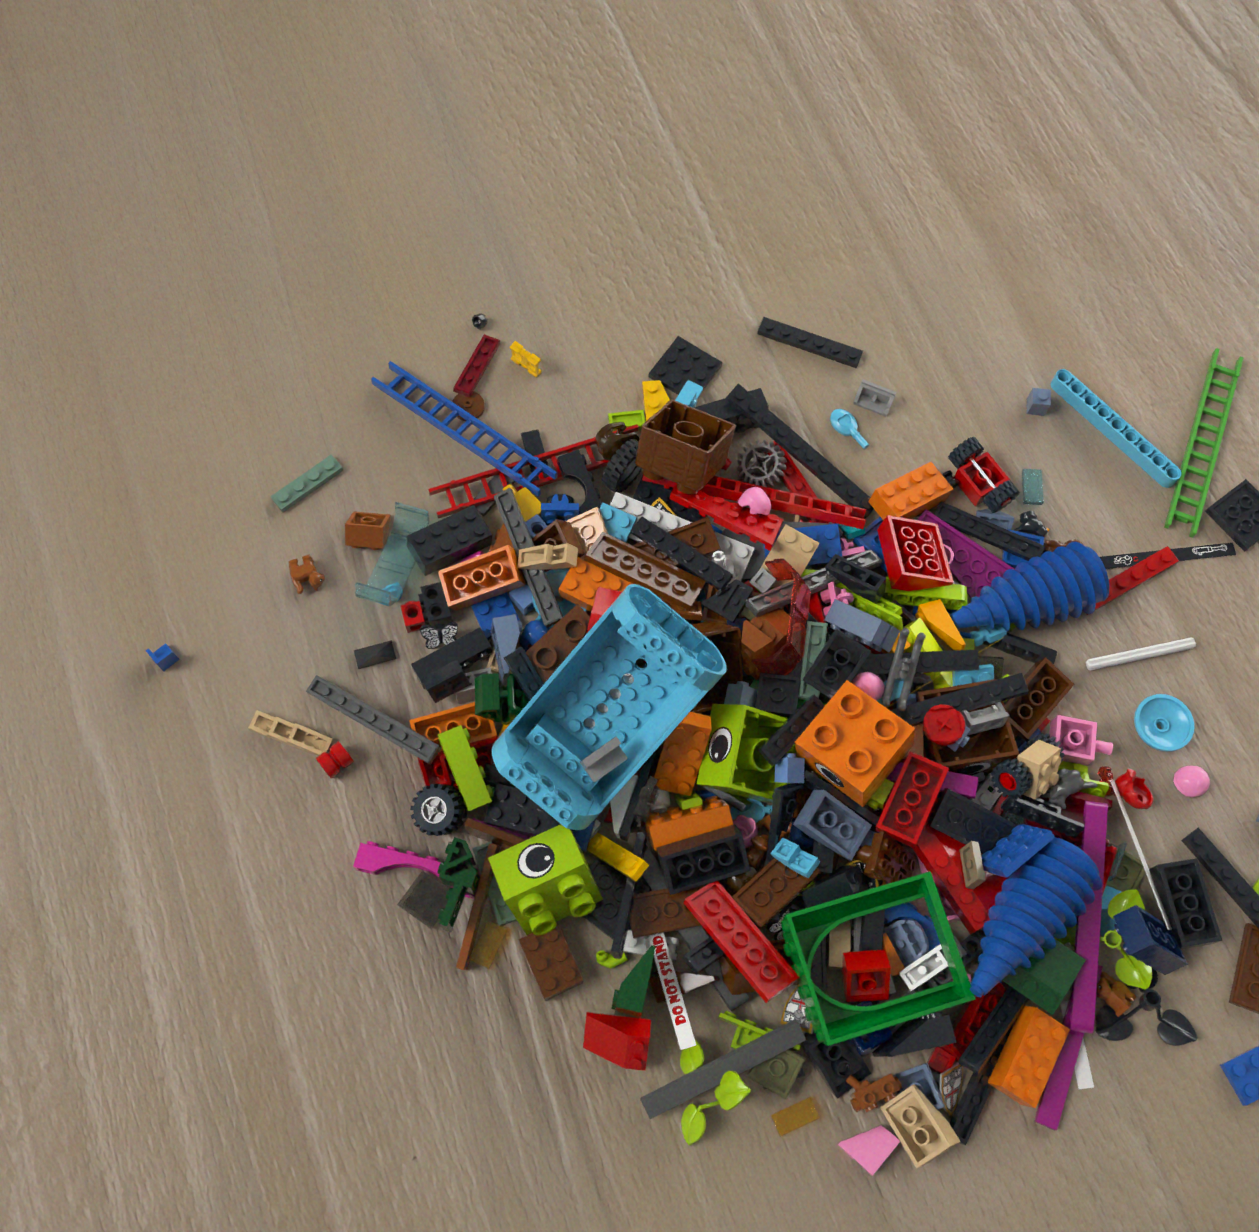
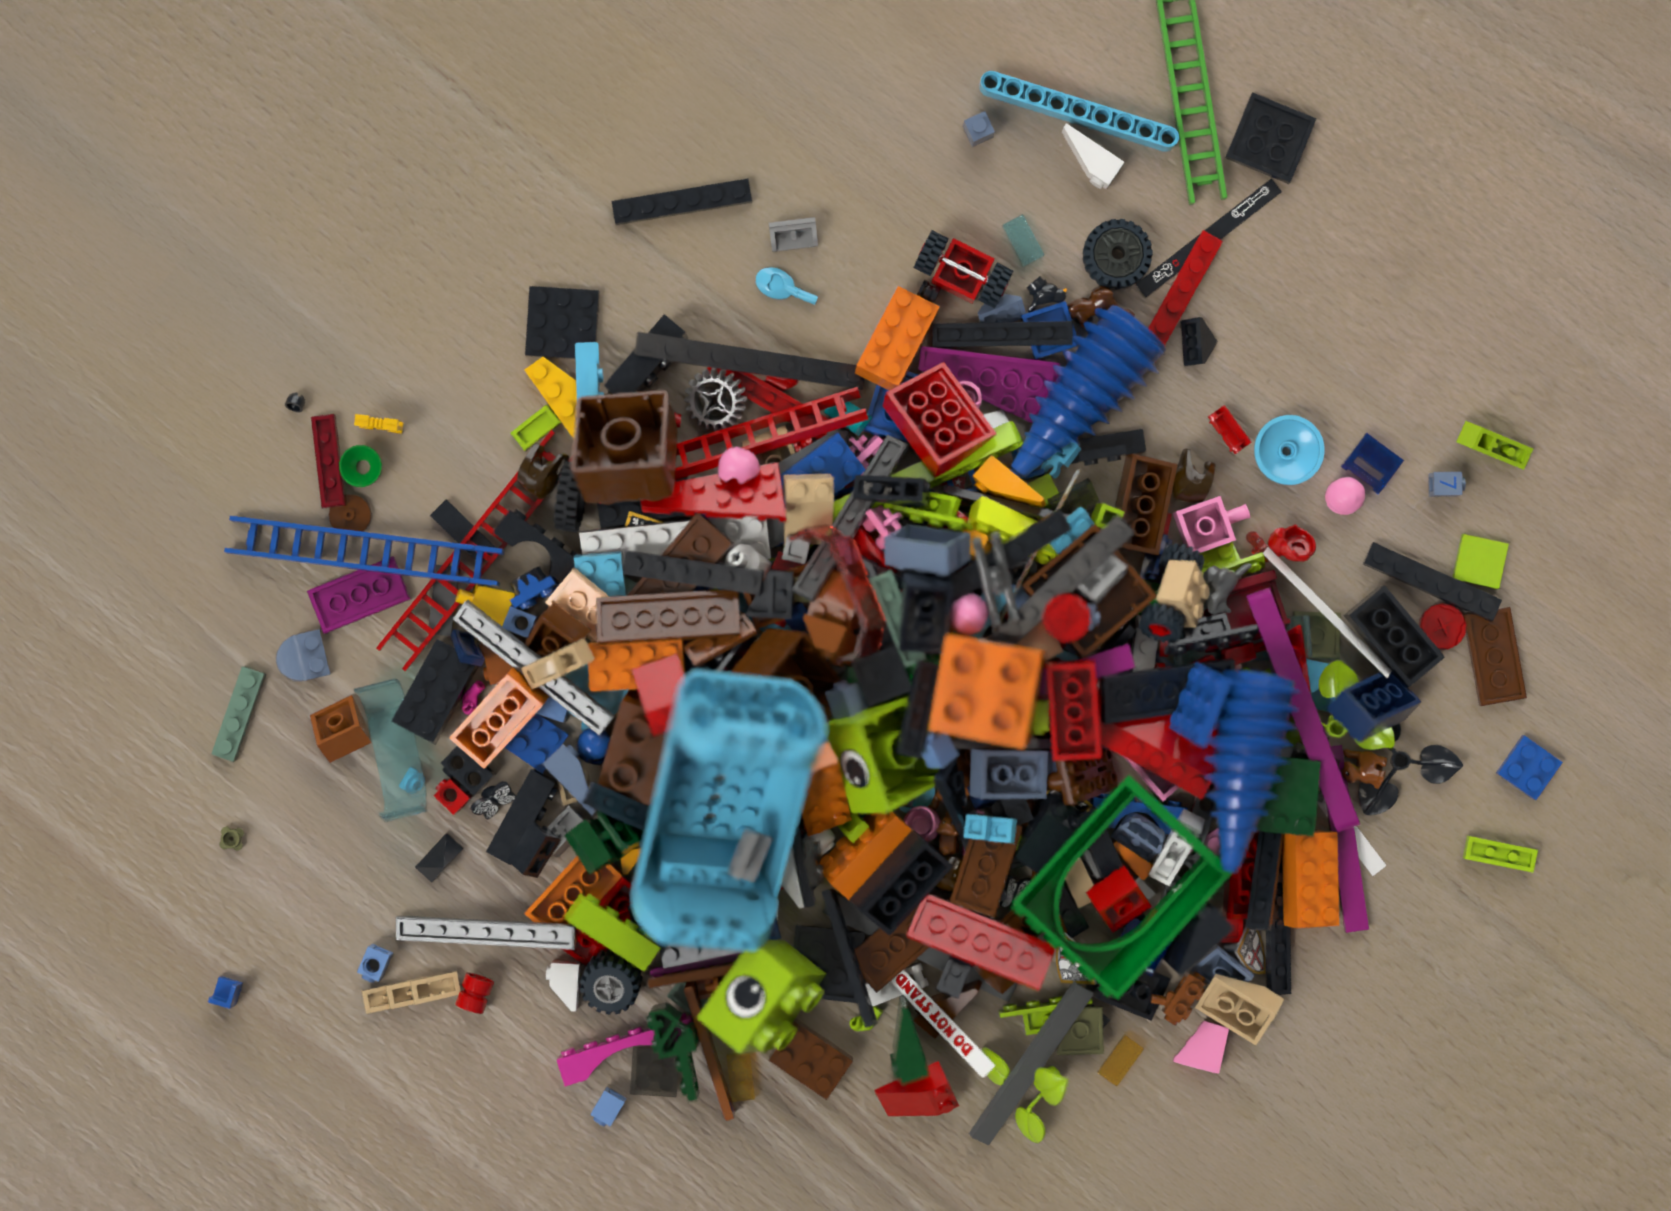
camera: 25 degrees left, 20 degrees up
(237, 558) = (225, 838): none -> olive plate
(286, 701) = (382, 956): none -> medium blue brick
(305, 572) = (307, 816): dark orange animal -> none
(374, 905) = (608, 1107): none -> medium blue brick
(375, 471) = (302, 657): none -> sand blue slope
(404, 789) = (565, 981): none -> white slope
(437, 456) = (357, 596): none -> magenta tile
(490, 522) = (467, 647): none -> dark blue tile
(496, 371) = (349, 463): none -> green piece
(617, 856) = (815, 927): yellow plate -> none
(813, 483) = (781, 383): none -> red arm
(972, 865) = (1166, 737): dark tan plate -> none
(1076, 702) = (1188, 483): none -> dark brown helmet
(1110, 526) = (1122, 236): none -> wheel
(1111, 463) = (1095, 160): none -> white slope
(1123, 686) = (1229, 429): none -> red hinge
(1127, 615) = (1196, 341): none -> black slope
(1139, 654) = (1231, 378): white axle -> none
(1197, 1133) = (1500, 854): none -> lime plate
(1228, 767) = (1377, 457): none -> clear blue plate
(1230, 922) = (1443, 625): none -> red tile

